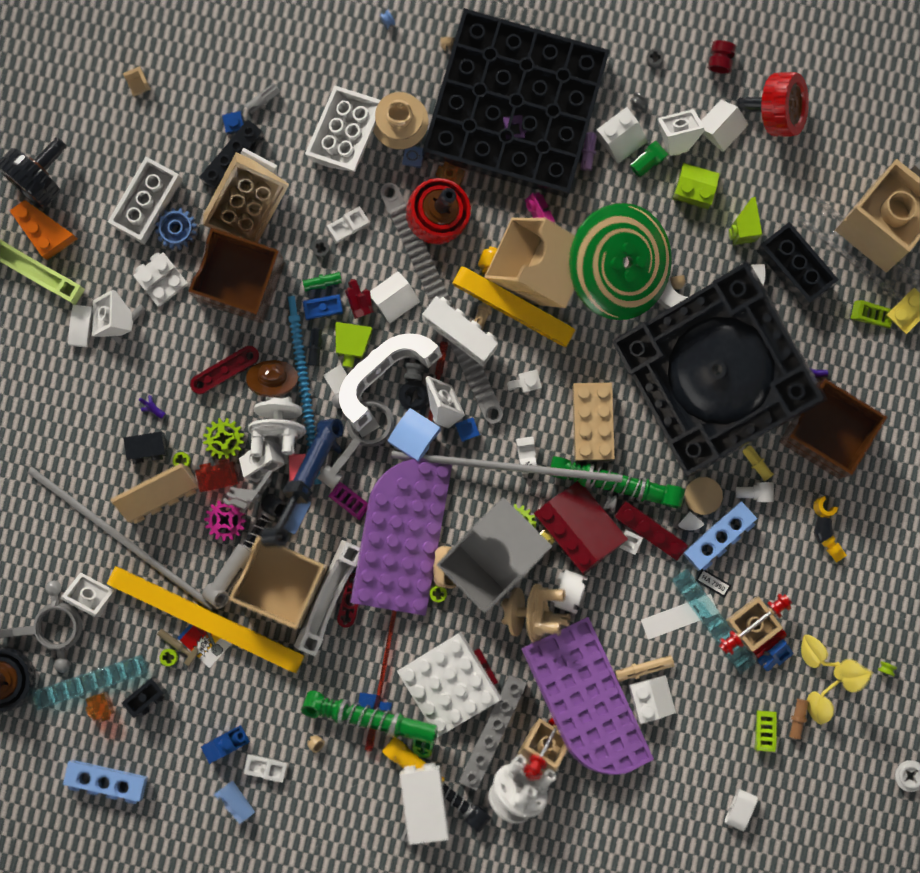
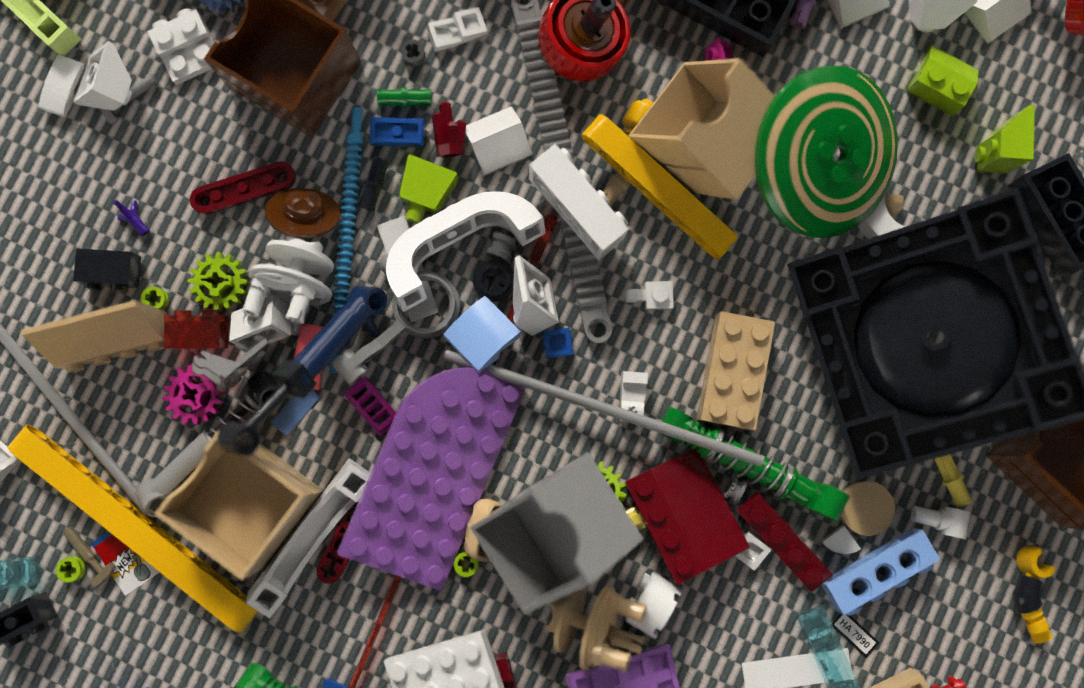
camera: 10 degrees right, 0 degrees up
(652, 156) = (891, 26): green piece -> none

